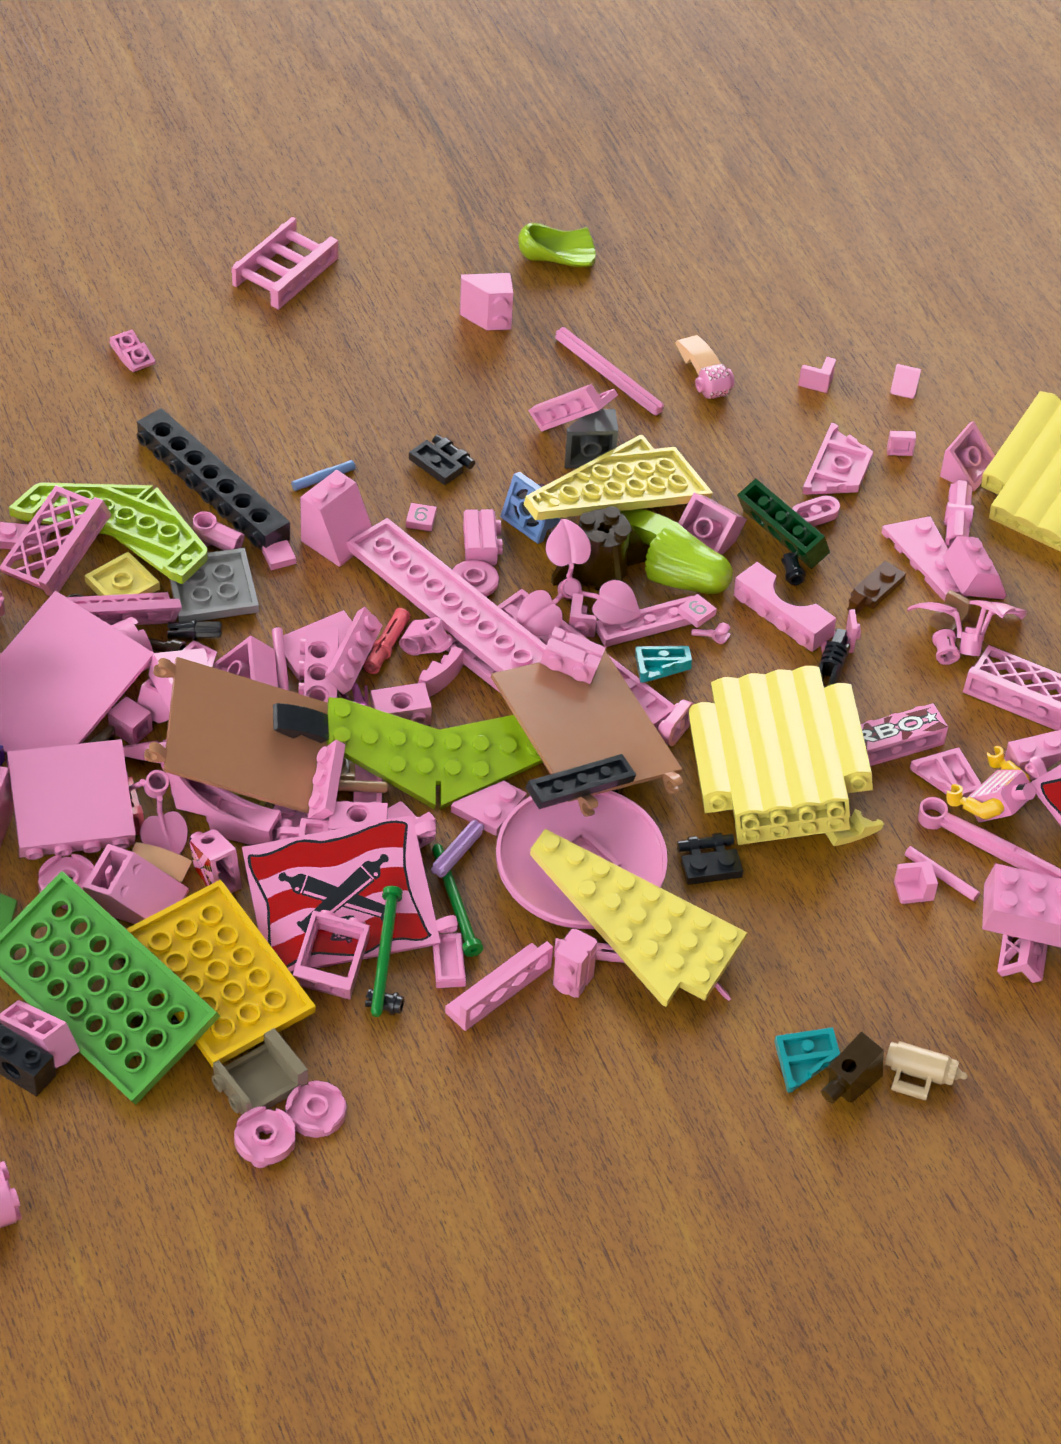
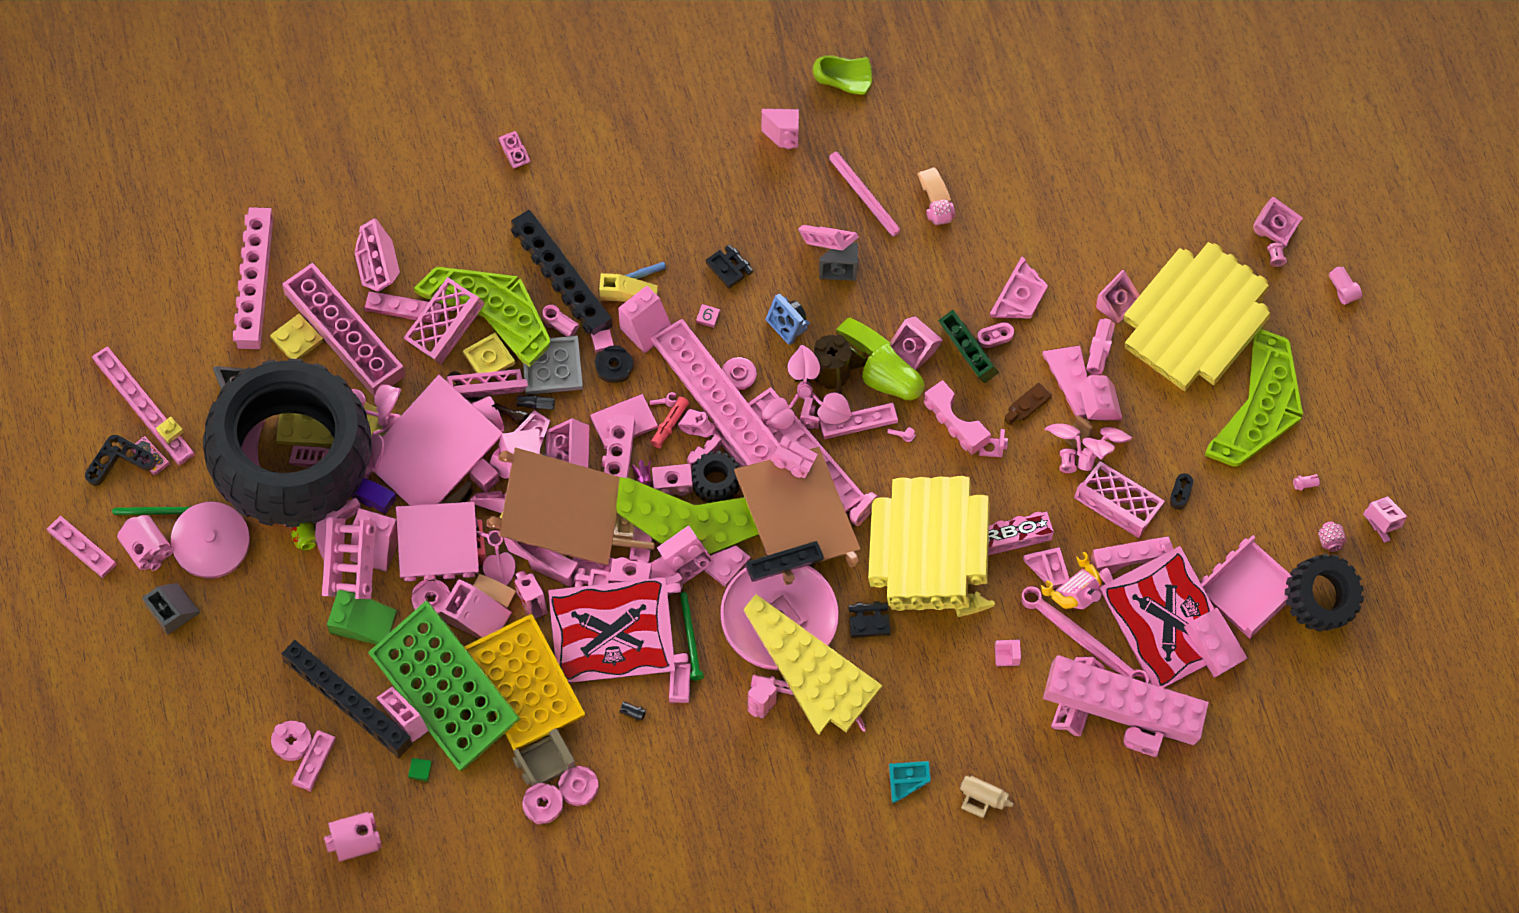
camera: 10 degrees right, 15 degrees up
(71, 1107) = (420, 769): none -> green tile
(278, 644) = (592, 436): bright pink bar -> none
(288, 486) = (620, 287): none -> light yellow slope
(292, 279) = (641, 90): bright pink fence -> none
(299, 720) = (598, 497): black slope -> none
(307, 589) = (614, 374): none -> black plate
(325, 981) = (591, 693): bright pink window -> none
(326, 780) = (611, 542): bright pink plate -> none
(353, 650) = (643, 433): bright pink plate -> none
(384, 614) = (669, 403): none -> bright pink hand
(392, 895) = (645, 637): green bar -> none
(435, 788) = (685, 554): none -> bright pink slope
(457, 848) = (696, 598): lavender axle -> none
(465, 682) = (715, 463): none -> black tyre
(481, 535) = (747, 338): bright pink brick -> none
(500, 985) = (711, 705): bright pink fence -> none
(622, 478) = (857, 302): light yellow wing -> none
(661, 661) = (861, 457): teal wing -> none
(697, 610) = (892, 417): bright pink tile -> none
(794, 573) = (970, 384): black pin -> none
(818, 378) = (1019, 211): bright pink panel -> none
(834, 656) = (985, 464): black hinge -> none
(854, 1070) = (941, 790): dark brown torso -> none
(901, 443) = (1070, 278): bright pink tile -> none
(905, 381) = (1085, 221): bright pink slope -> none
(944, 874) = (1028, 645): bright pink bar -> none

